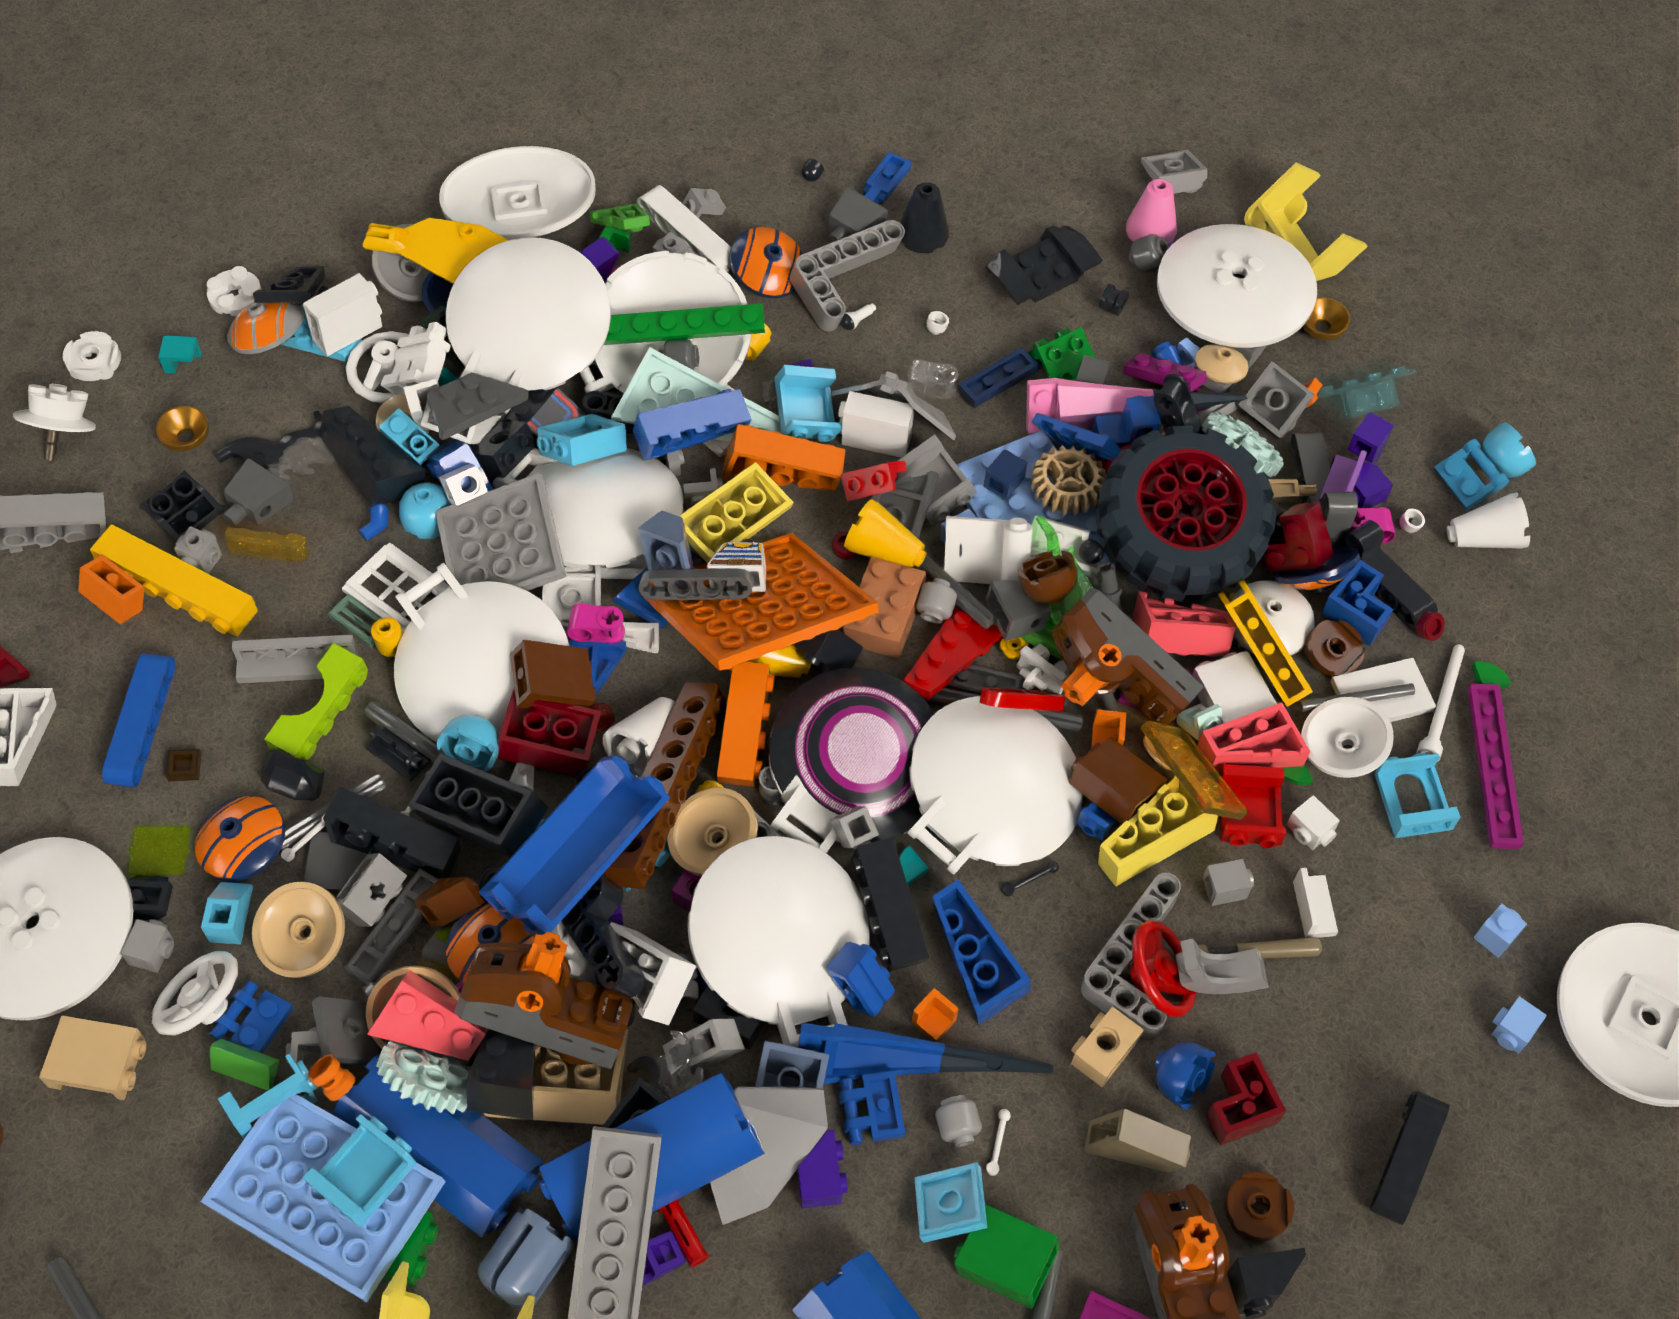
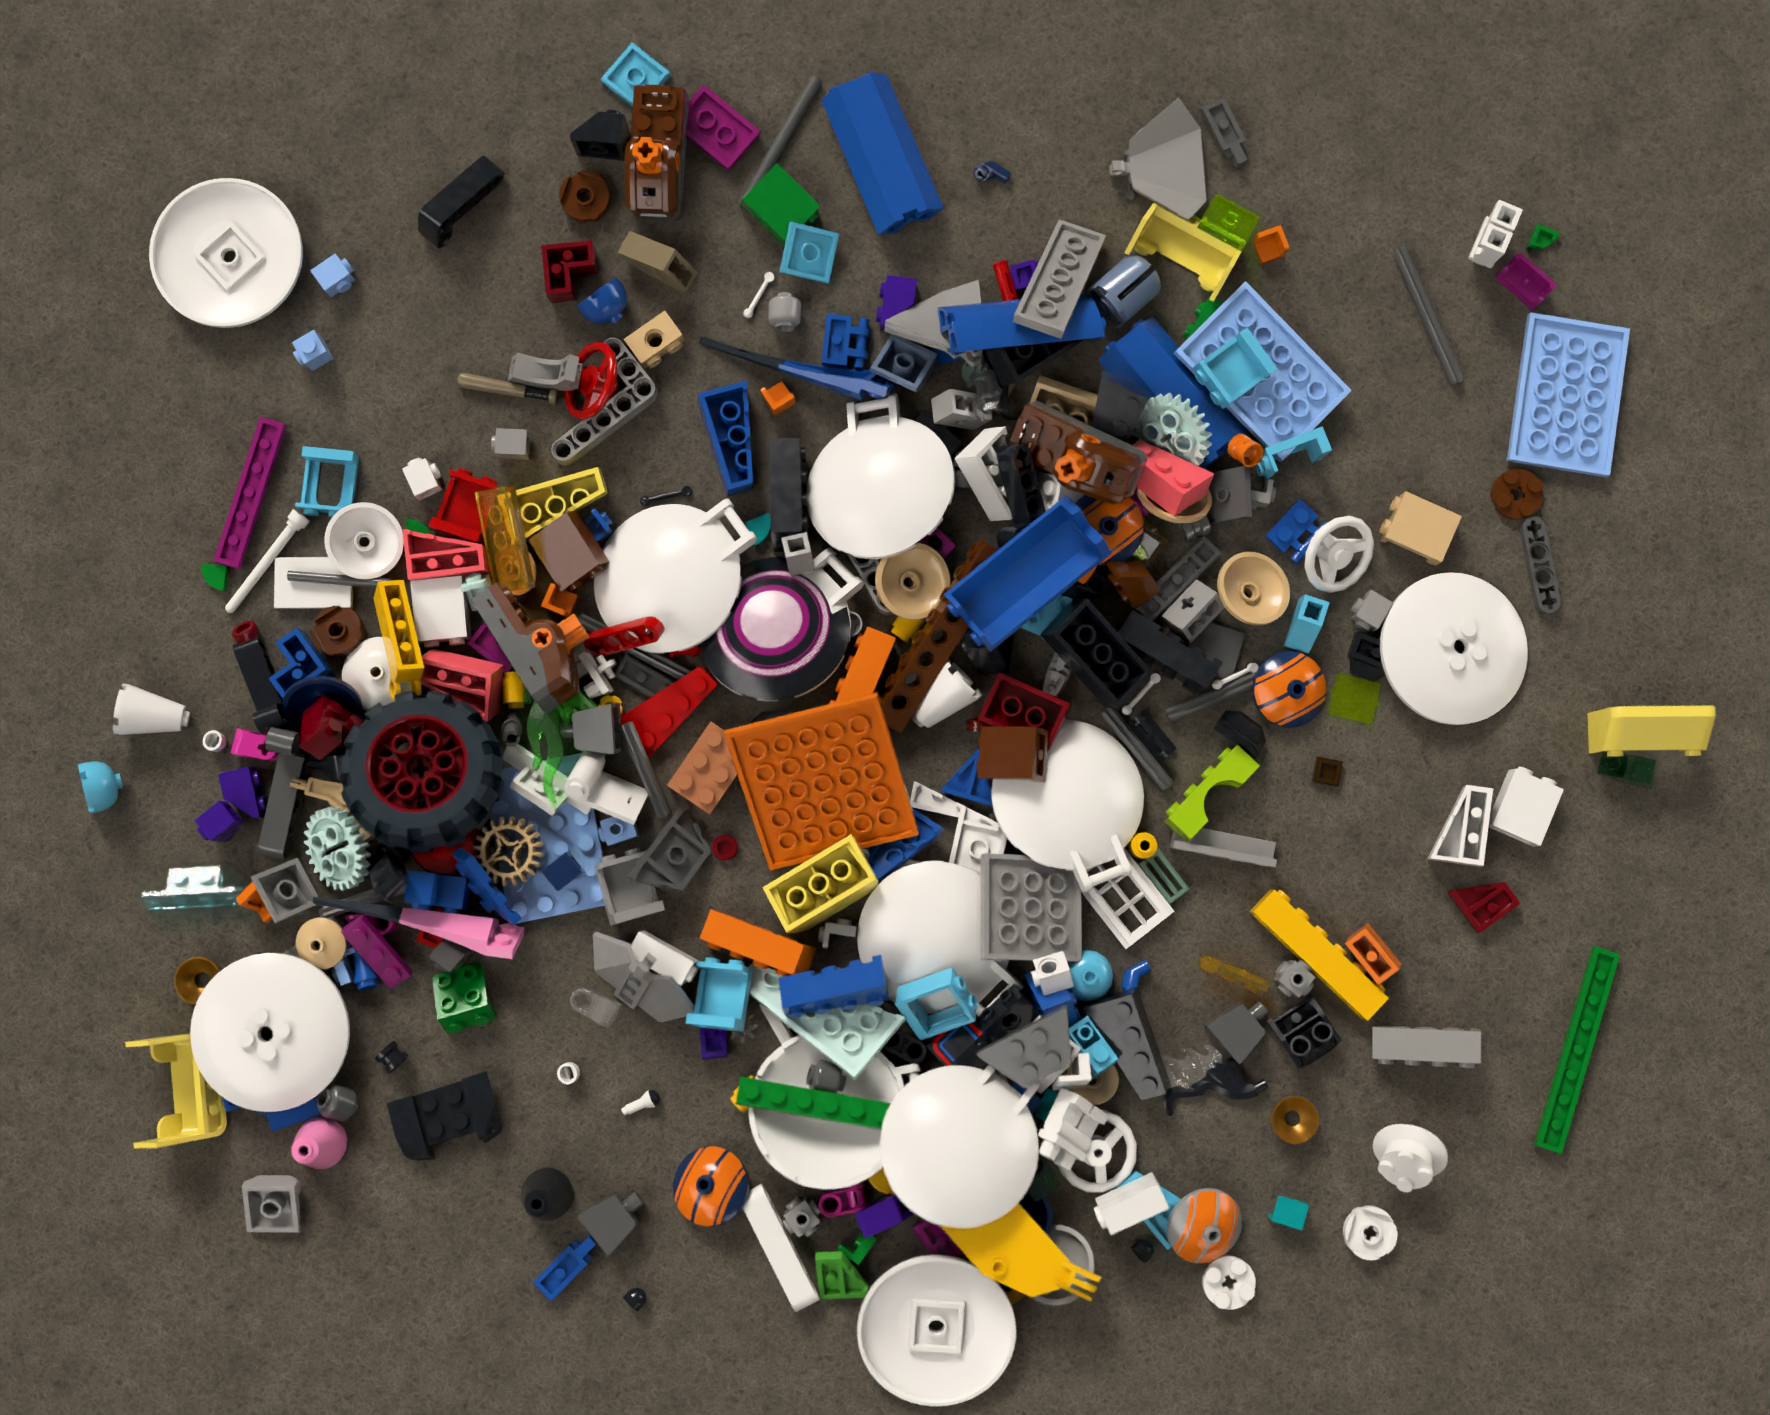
camera: 165 degrees left, 25 degrees up
(138, 720) = (1360, 821): blue beam -> none
(243, 1064) = (1307, 496): bright green slope -> none
(295, 286) = (1171, 1258): black wing -> none
(470, 741) = (1090, 718): medium azure cylinder -> none
(594, 622) = (969, 808): dark pink piece -> none
(666, 544) = (886, 850): sand blue slope -> none
(695, 579) = (872, 804): dark grey beam -> none
(704, 202) = (755, 1280): light grey bracket -> none
(741, 555) = (829, 818): torso -> none
(861, 978) = (826, 433): blue brick -> none
(862, 249) = (644, 1162): light grey beam -> none
(872, 480) = (684, 897): red bracket -> none
(884, 537) = (693, 827): yellow cone -> none
(936, 601) = (665, 758): light grey head -> none
(997, 377) = (532, 994): dark blue plate -> none
(1048, 577) = (566, 735): reddish brown cylinder -> none
(1091, 551) = (515, 766): black hinge -> none
(1314, 905) = (448, 412): white panel -> none
(1343, 474) = (263, 783): medium lavender panel -> none
(1464, 481) = (148, 770): dark azure plate -> none

